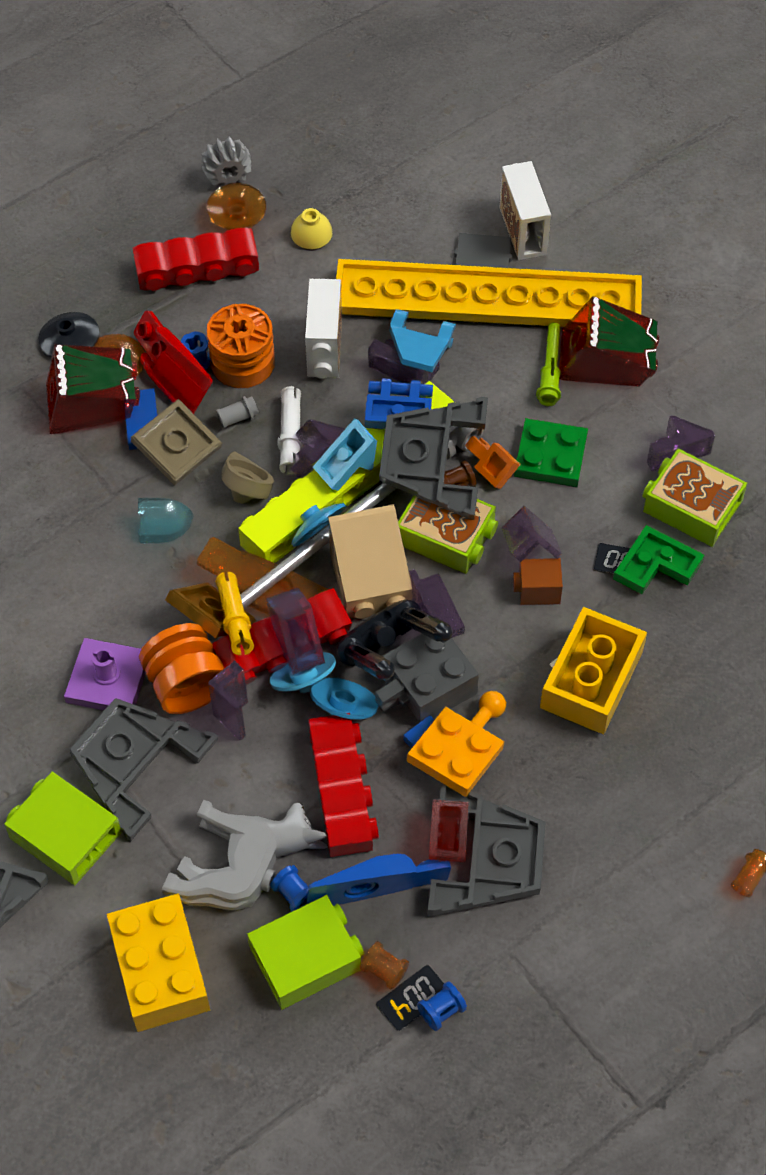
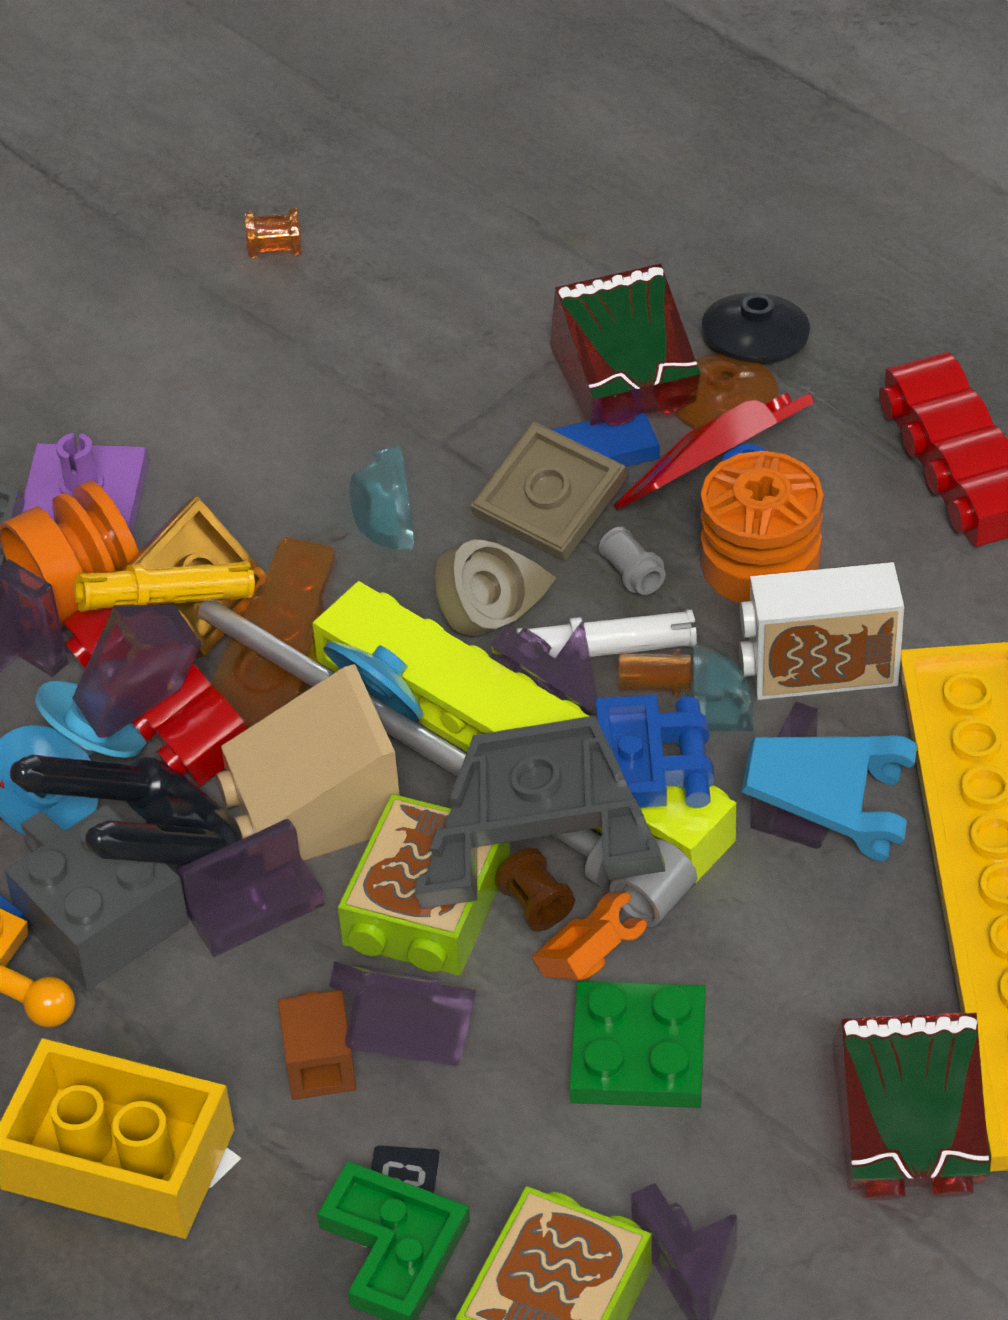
camera: 85 degrees right, 10 degrees down
(320, 404) = (656, 672): none -> clear orange pin
(334, 389) = (722, 691): none -> clear light blue brick
(348, 452) = (511, 682): medium azure slope -> none
(549, 390) = (821, 1017): lime pin -> none

